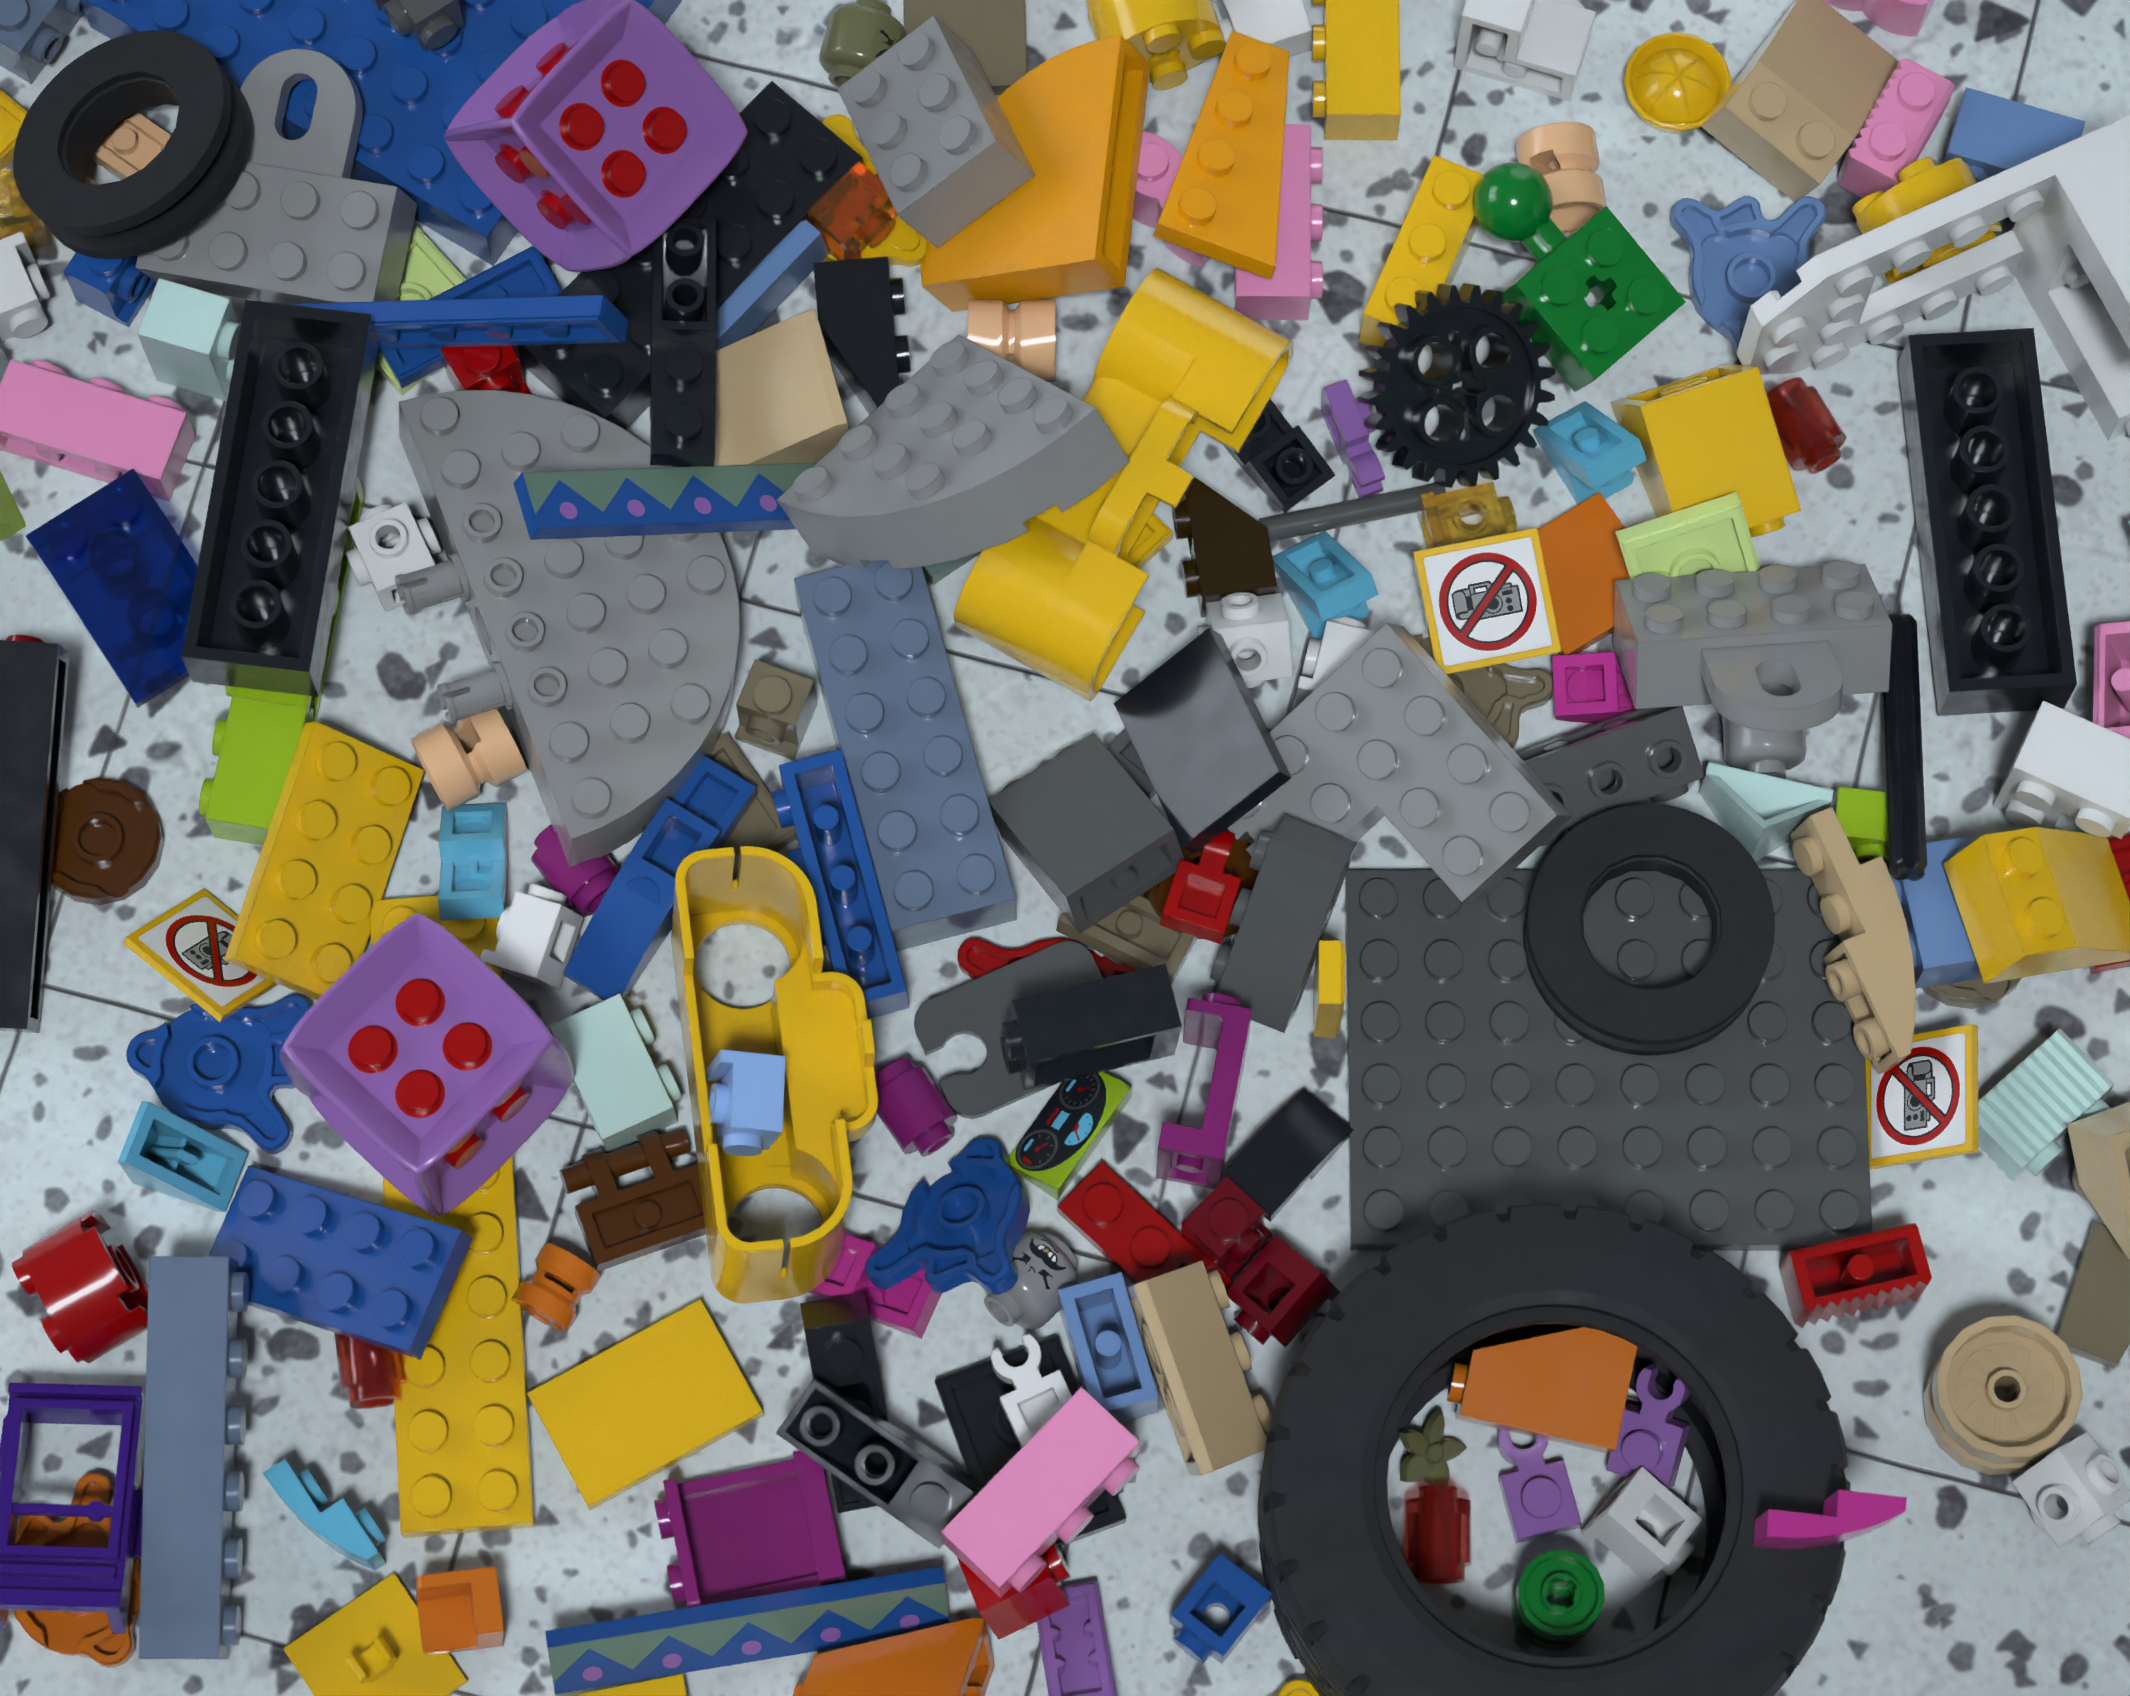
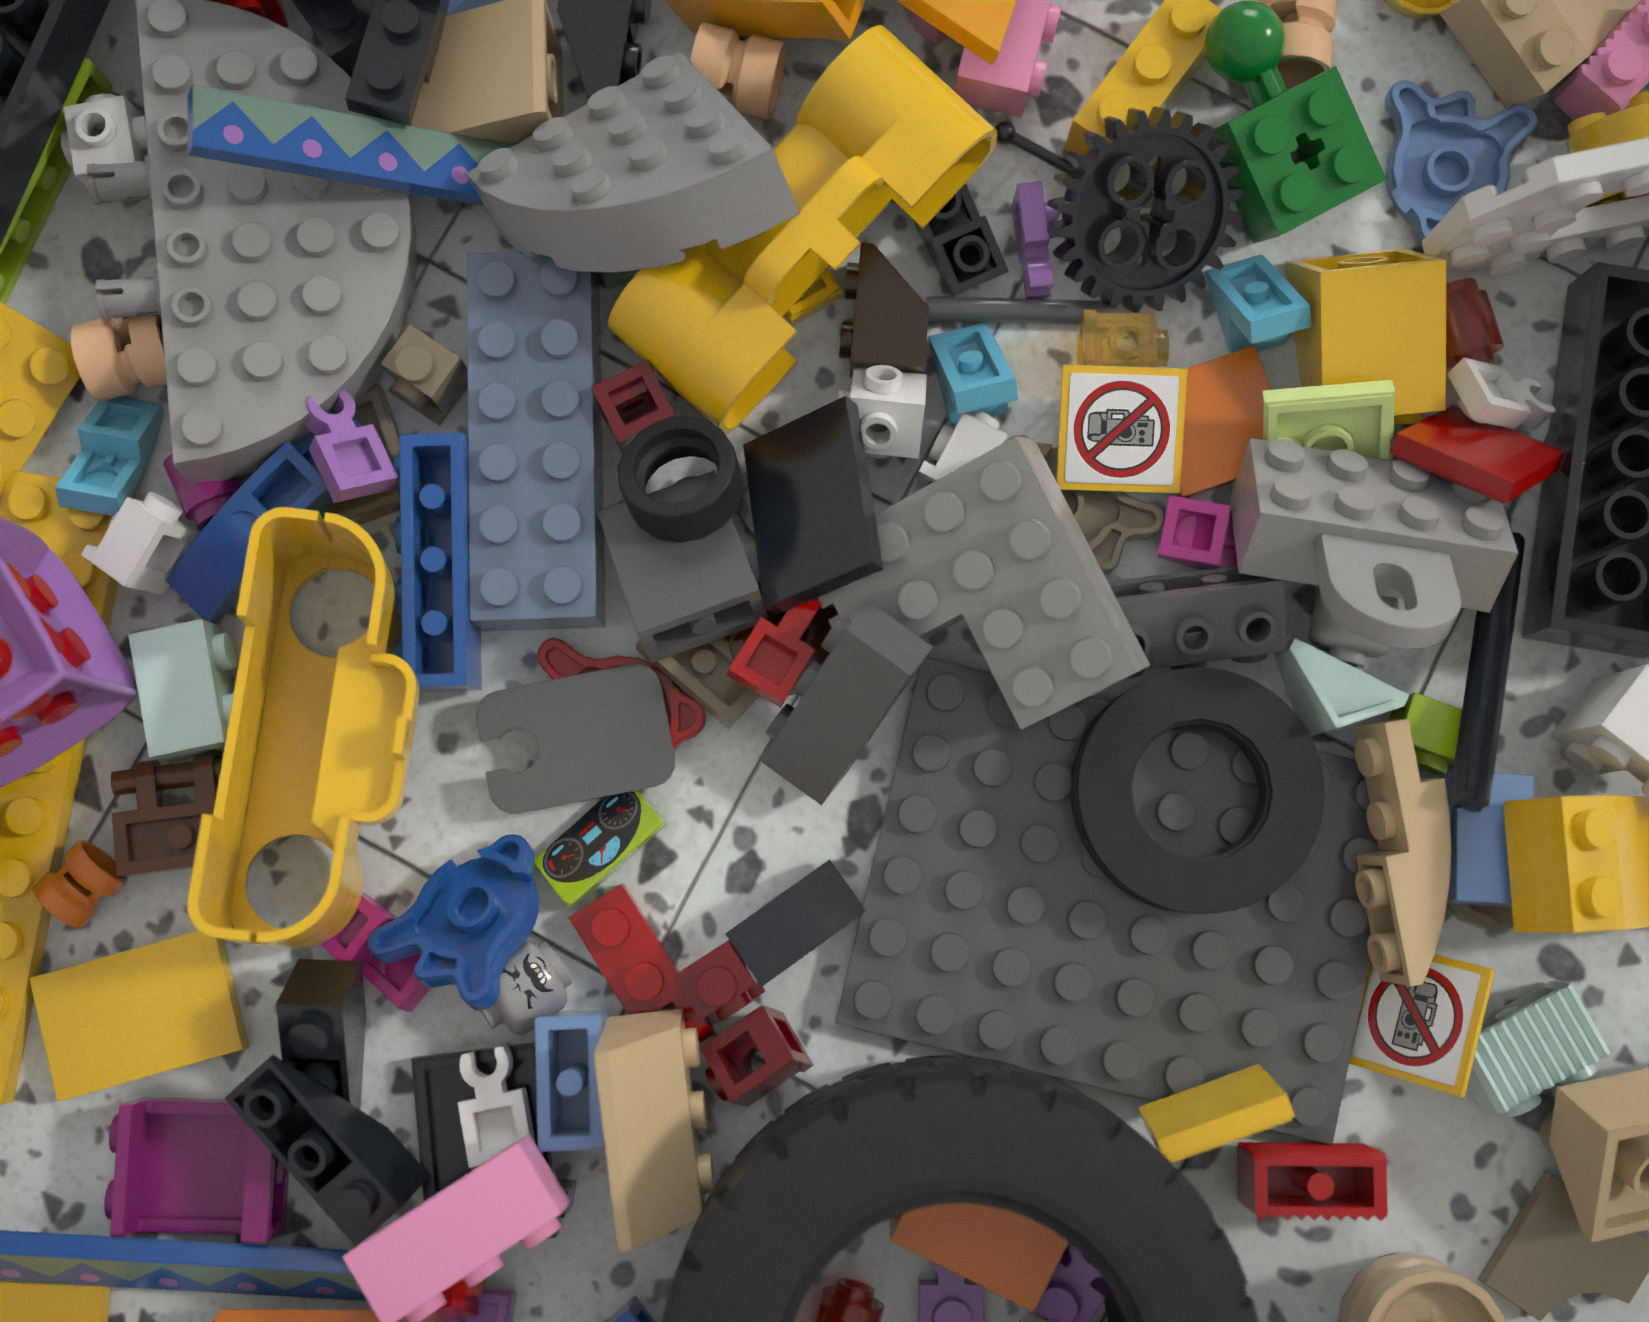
camera: 15 degrees right, 10 degrees up
(730, 797) = (346, 455): none -> medium lavender plate
(746, 1100) = (269, 769): light blue brick -> none
(913, 1108) = (455, 790): magenta brick -> none
(999, 692) = (632, 402): none -> dark red brick
(1051, 710) = (674, 440): none -> black tyre
(1091, 1027) = (627, 766): black window -> none
(1197, 1154) = (720, 909): magenta panel -> none
(1301, 342) = (1007, 134): none -> black hinge
(1328, 989) = (874, 775): yellow tile -> none
(1428, 1452) = (858, 1253): olive plant -> none
(1750, 1211) = (1216, 1113): none -> yellow tile
(1840, 543) = (1477, 455): none -> red tile
(1846, 487) = (1494, 398): none -> white plate

